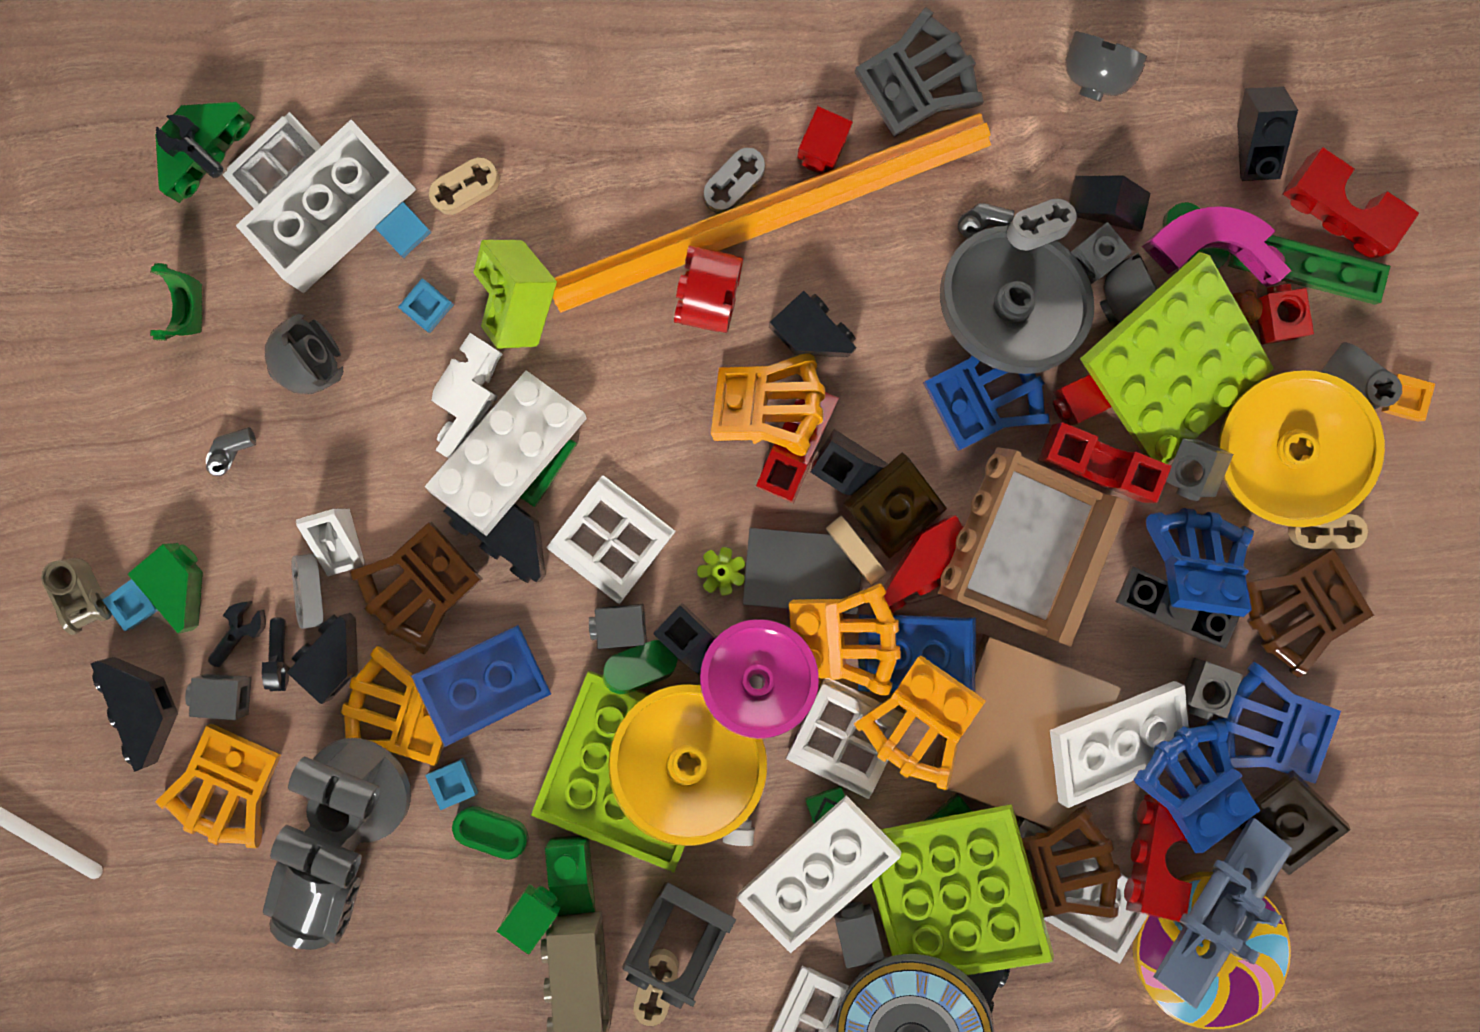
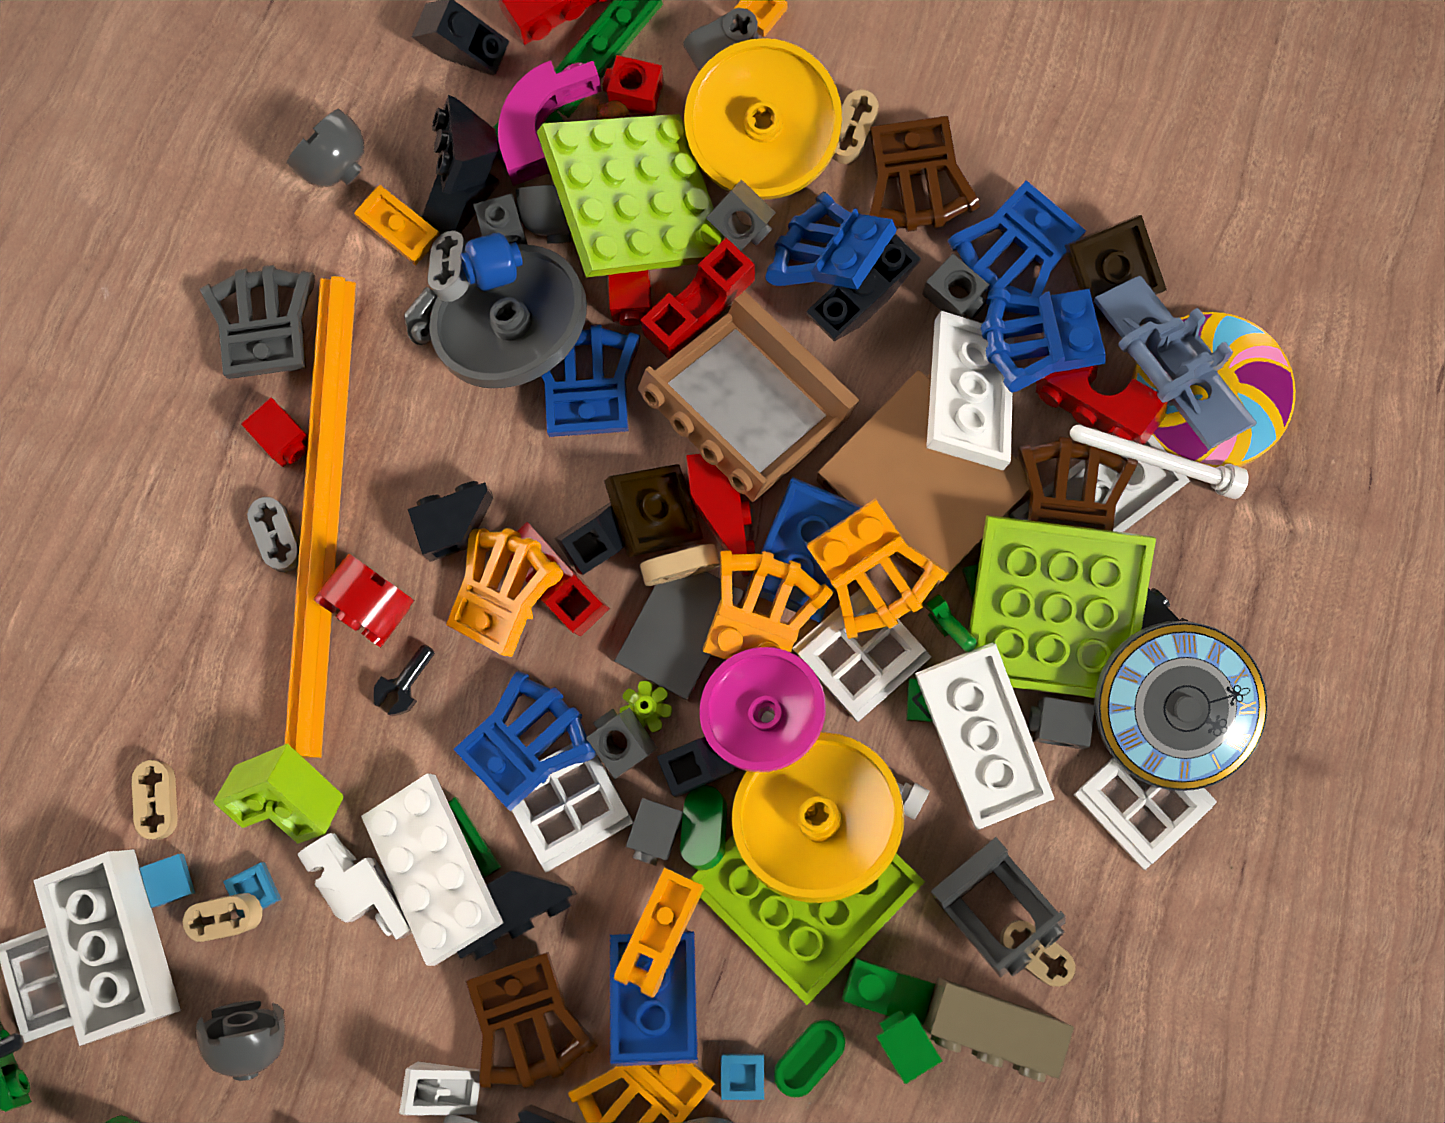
camera: 65 degrees left, 10 degrees down
(386, 297) = (223, 925): none -> tan beam
(537, 668) = (659, 931): none -> light orange plate
(623, 471) = (504, 761): none -> blue plate
(655, 353) = (403, 682): none -> black bar
(666, 568) = (638, 741): none -> dark grey brick
(903, 800) = (947, 624): none -> green bar
(1060, 157) = (397, 224): none -> light orange plate
(1060, 262) = (491, 261): none -> blue head
(1133, 995) = (1226, 480): none -> white piece
(1160, 186) = (464, 146): none -> black slope

